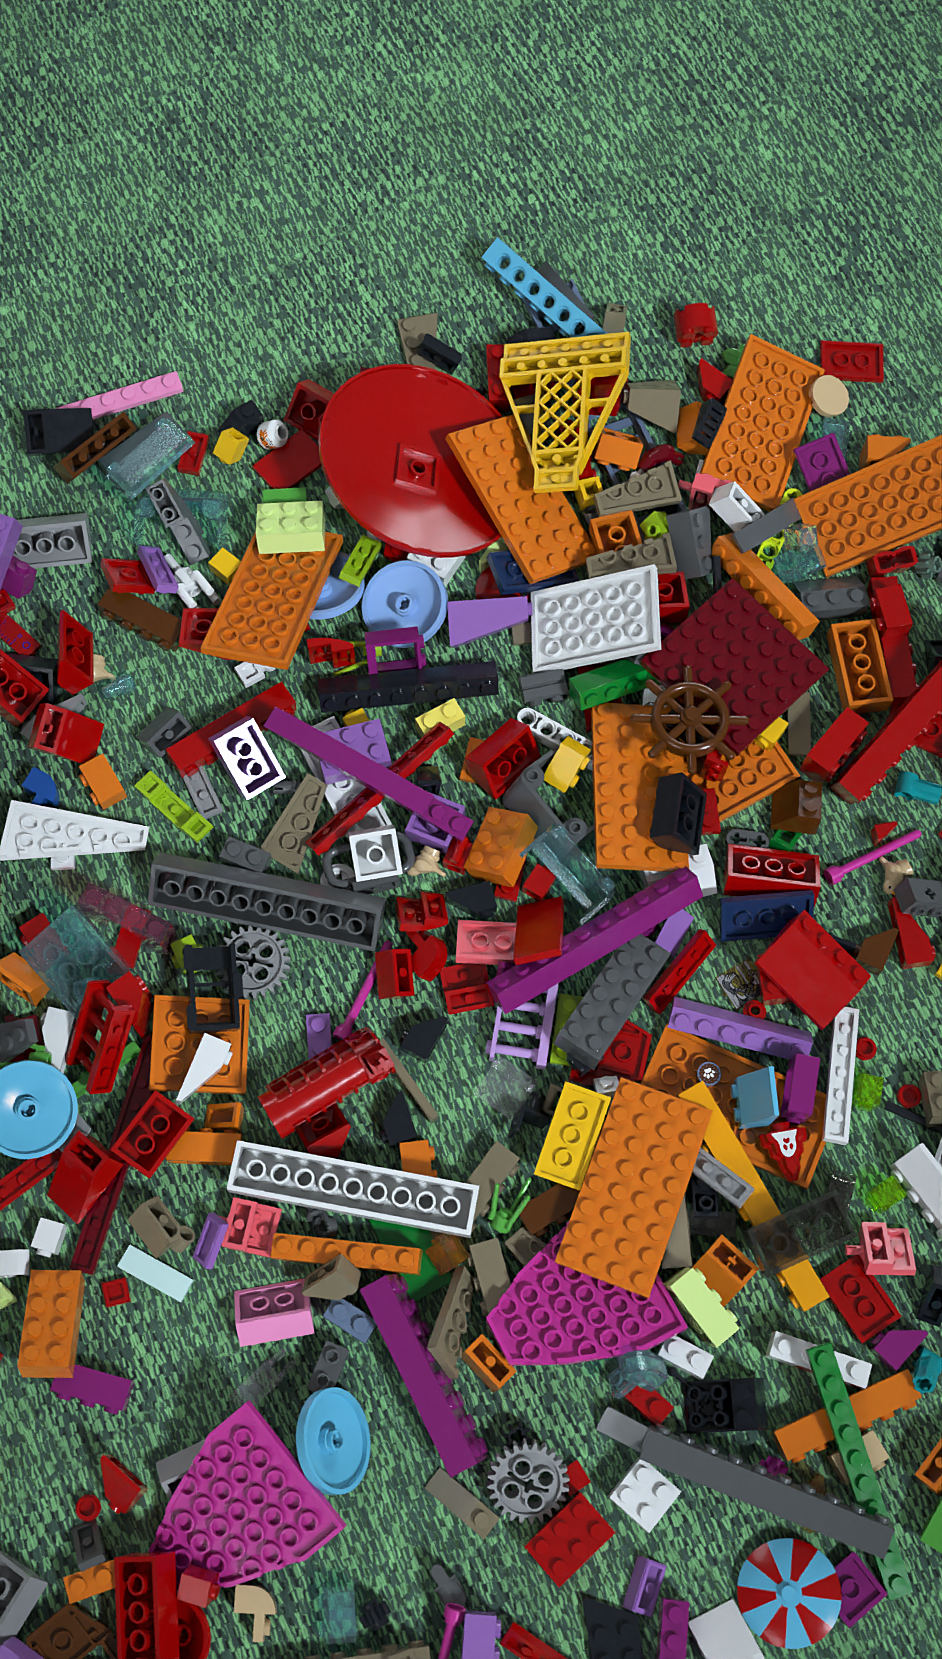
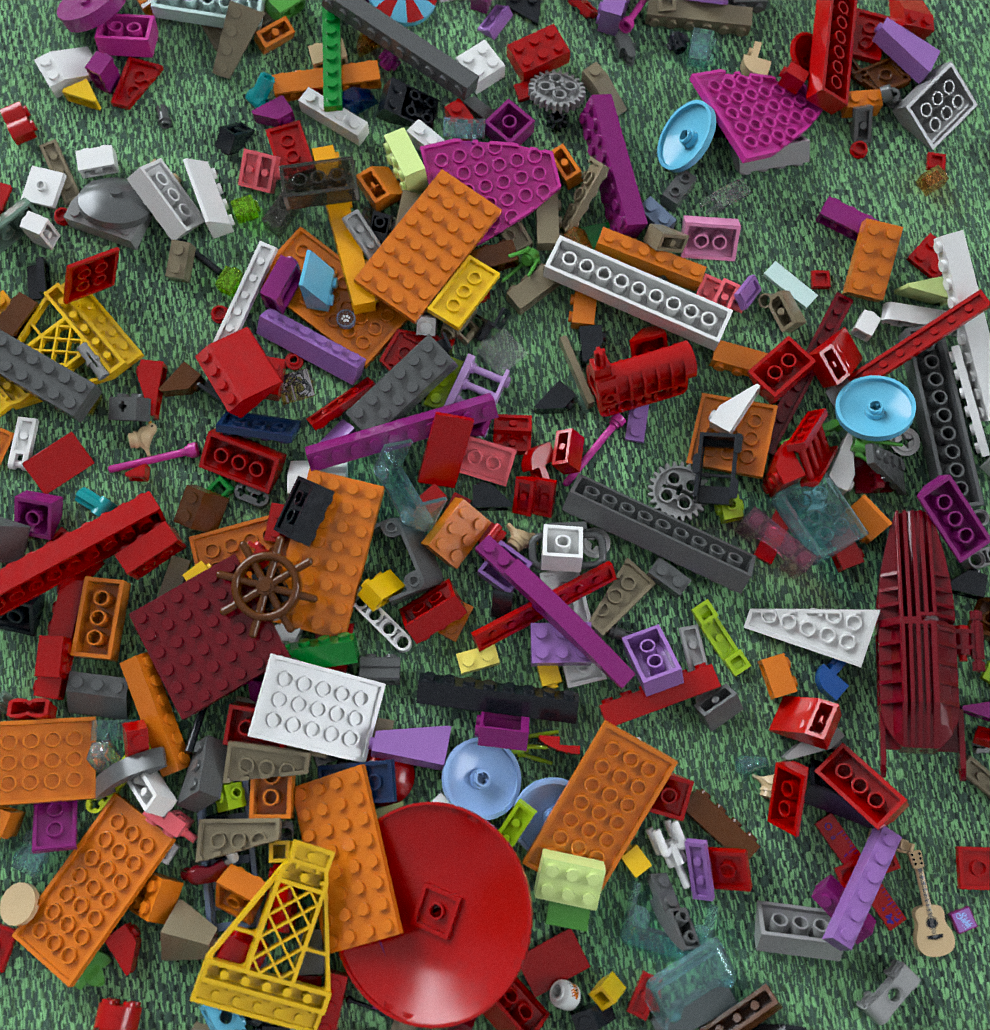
camera: 165 degrees left, 5 degrees up
(58, 1594) = (887, 95): none -> dark grey connector
(120, 1485) = (834, 154): red slope -> none
(224, 1116) = (721, 379): orange slope -> none
(579, 1405) = (509, 124): none -> magenta brick
(714, 410) = (136, 902): black slope -> none
(774, 555) = (135, 737): none -> red slope
(785, 1147) = (307, 242): red rock -> none
(795, 1396) = (358, 99): none -> clear blue slope
(908, 1096) = (200, 274): red tile -> none

